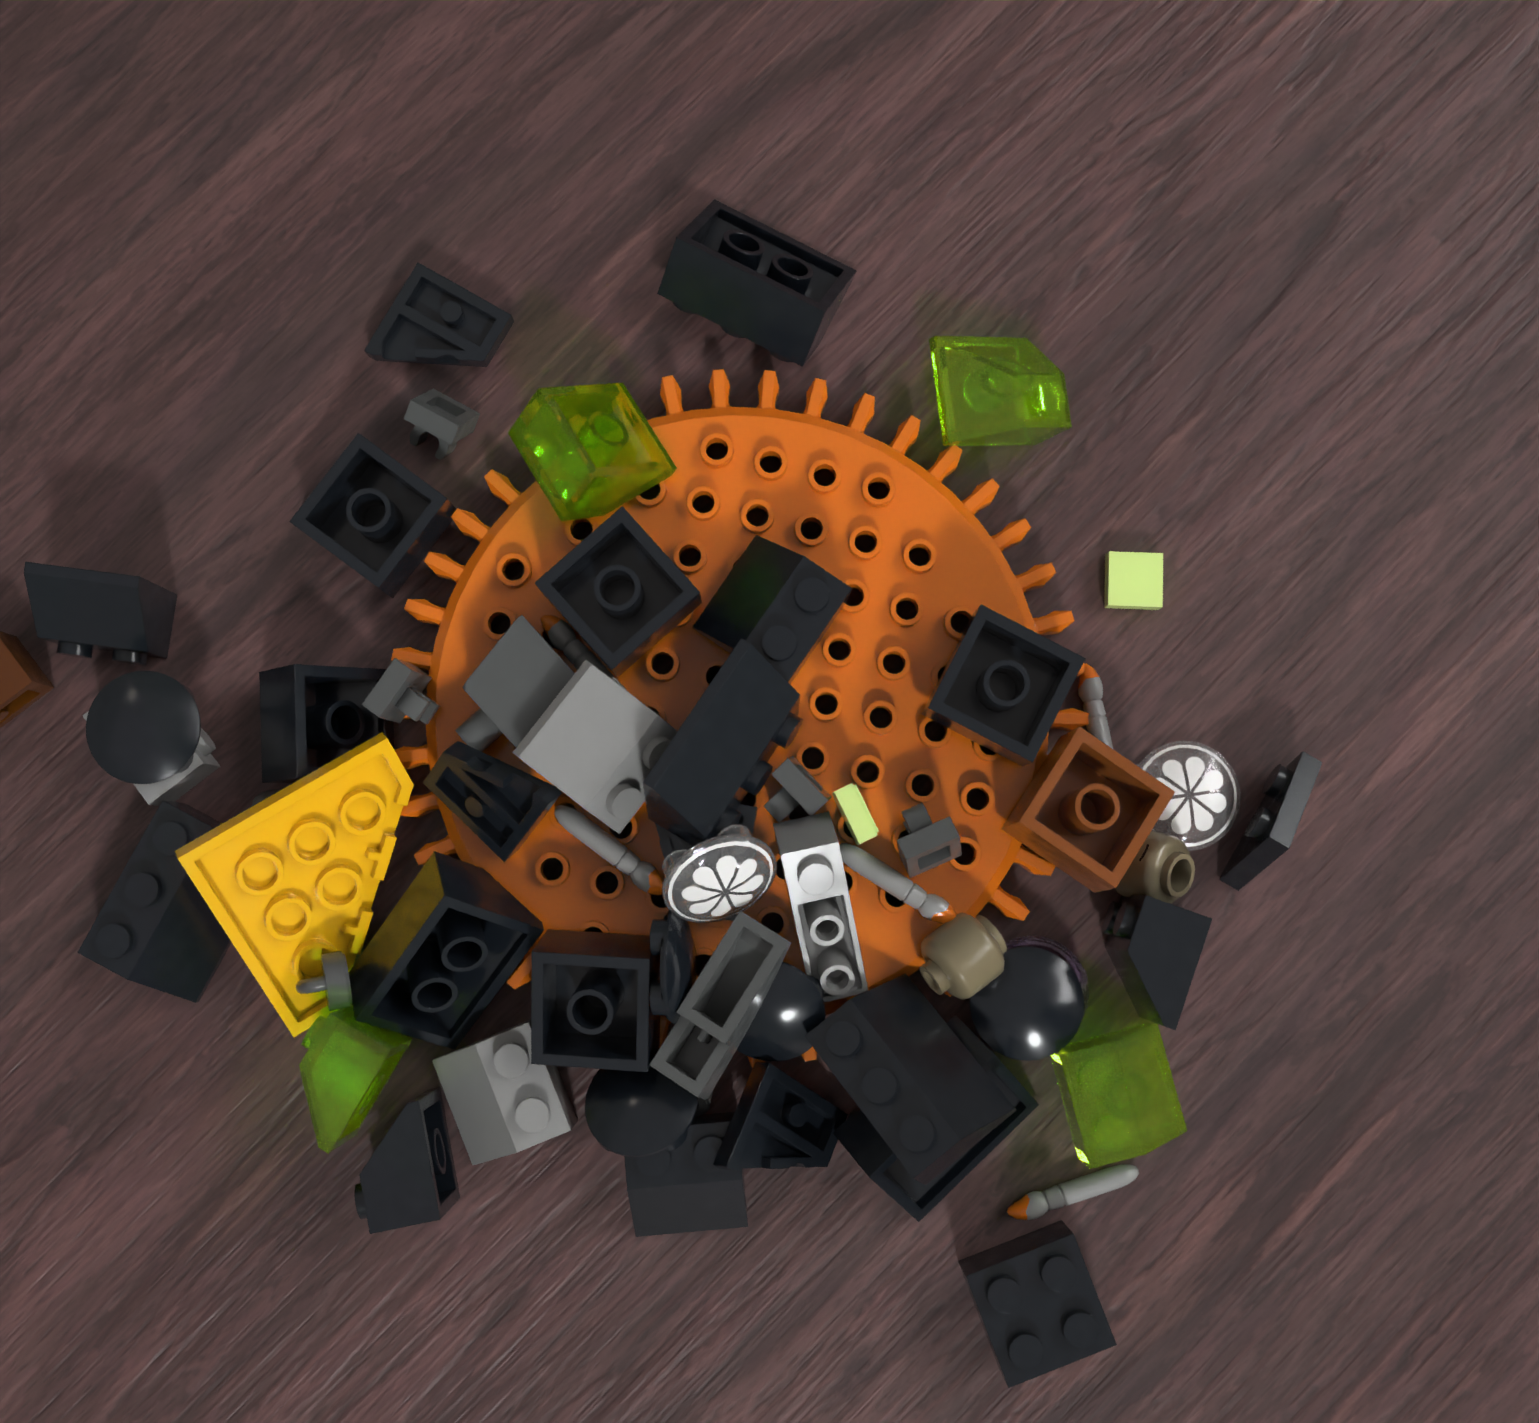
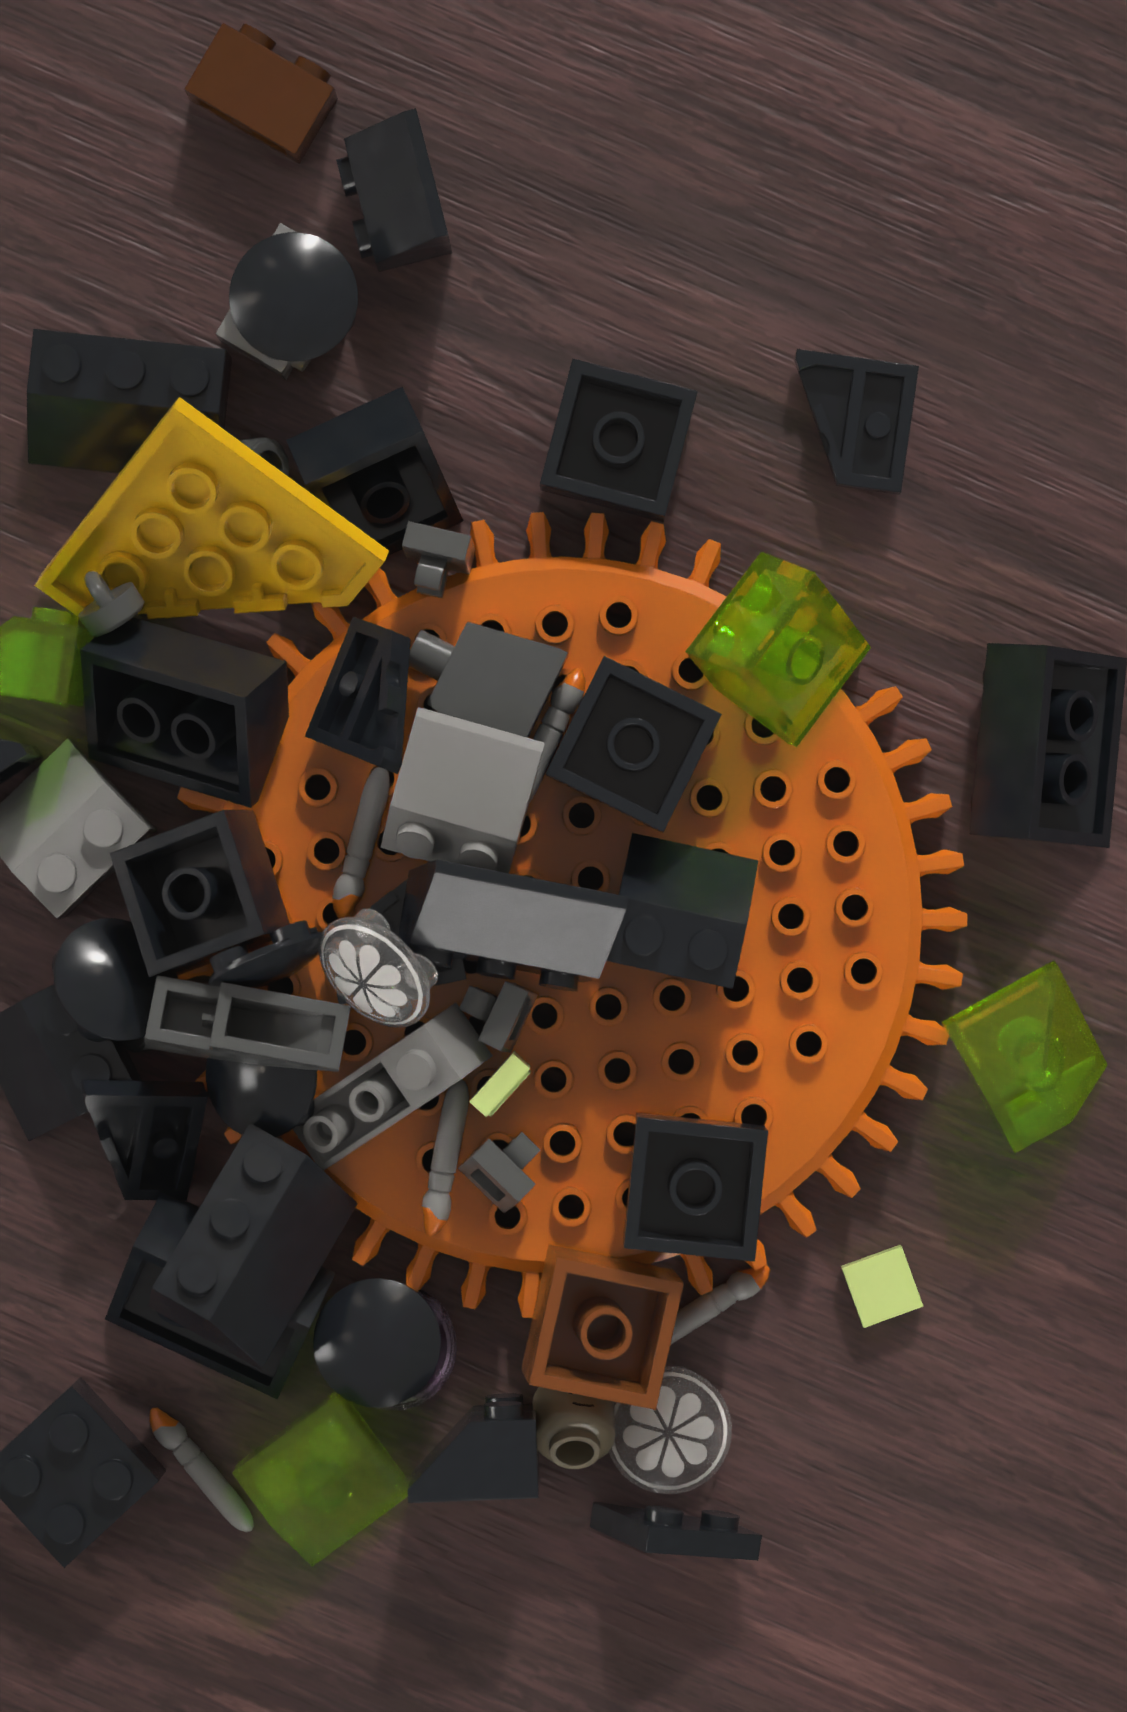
camera: 75 degrees right, 5 degrees up
(441, 417) = (756, 463): dark grey tile -> none
(962, 956) = (398, 1255): dark tan head -> none

